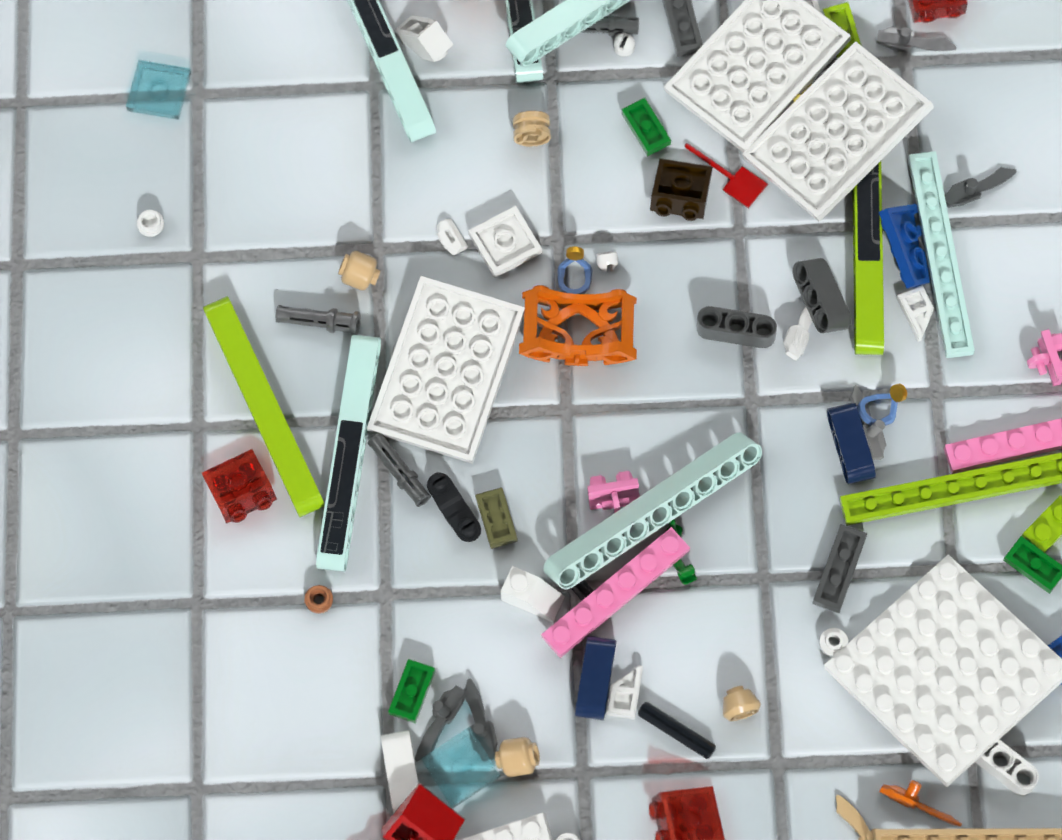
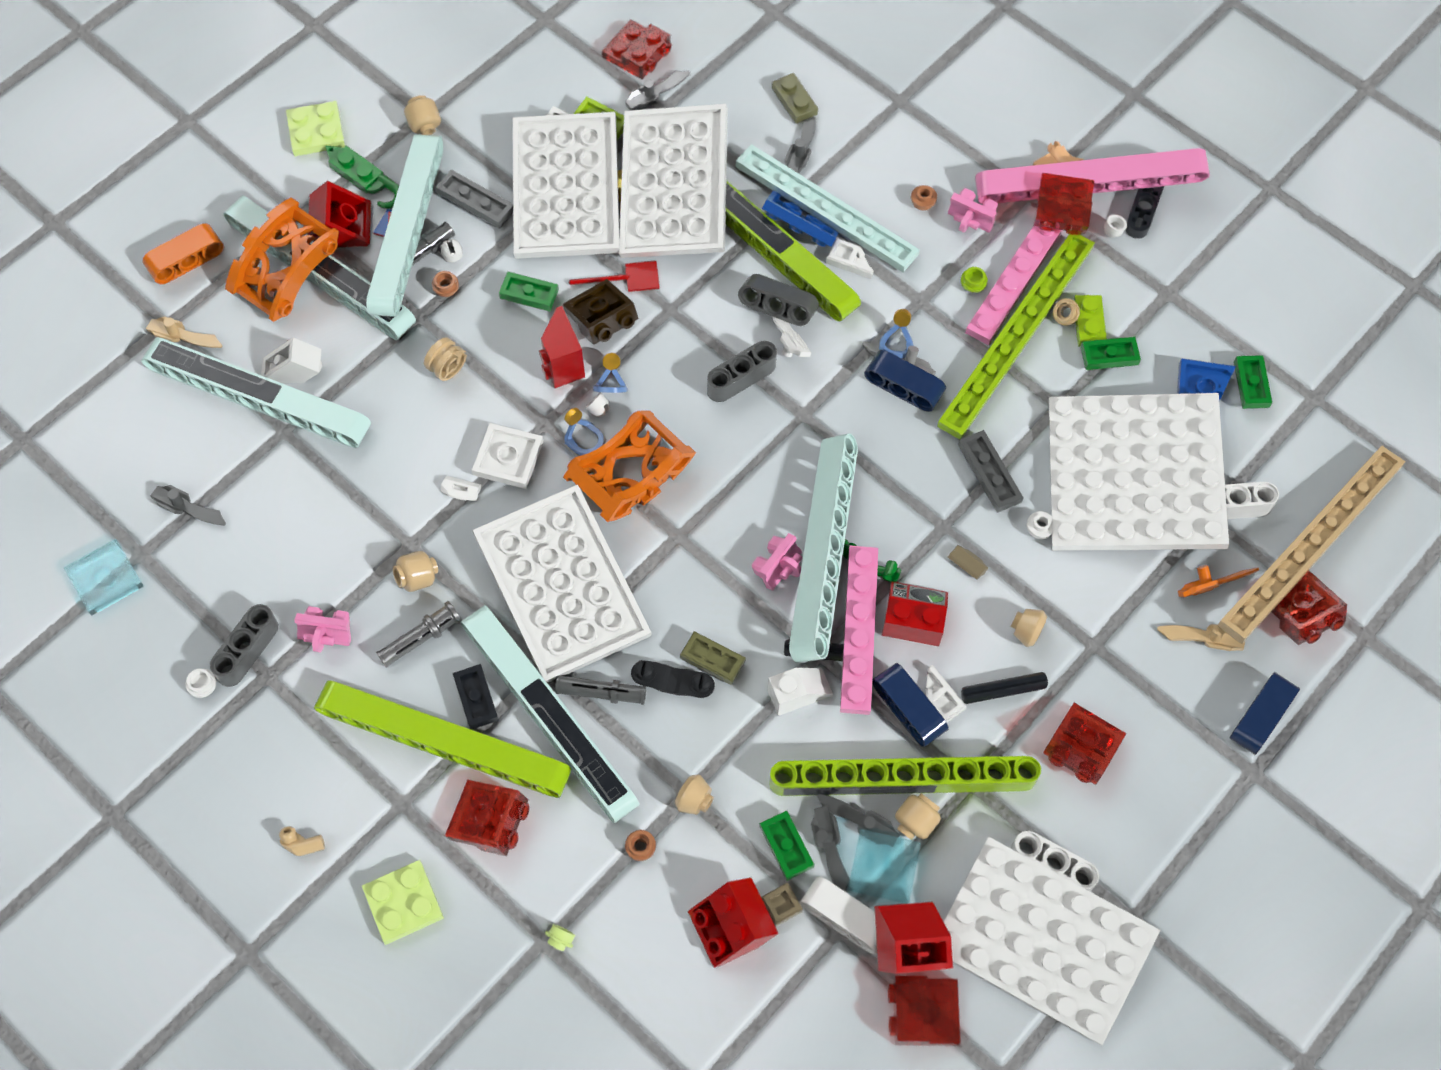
camera: 50 degrees left, 5 degrees down
(108, 391) = (299, 845): none -> tan arm
(135, 491) = (402, 902): none -> yellowish green plate
(187, 217) = (243, 659): none -> dark grey beam
(208, 609) = (560, 937): none -> yellowish green plate
(255, 76) = (179, 502): none -> piece
(258, 259) = (322, 630): none -> bright pink hips
(312, 396) = (475, 696): none -> black plate
(325, 705) = (732, 921): none -> red slope
(369, 726) = (782, 904): none -> dark tan tile
(384, 599) = (694, 796): none -> tan cone
(544, 734) = (916, 767): none -> lime beam
(592, 61) = (443, 278): none -> nougat plate
(616, 194) = (561, 351): none -> red slope
(648, 236) = (611, 362): none -> medium blue piece
(671, 618) = (915, 614): none -> red slope
(751, 619) = (968, 561): none -> dark tan piece
(994, 413) = (974, 279): none -> lime plate
(1017, 140) = (794, 98): none -> olive plate
(1025, 318) = (923, 203): none -> nougat plate
(1032, 497) = (1059, 308): none -> tan plate

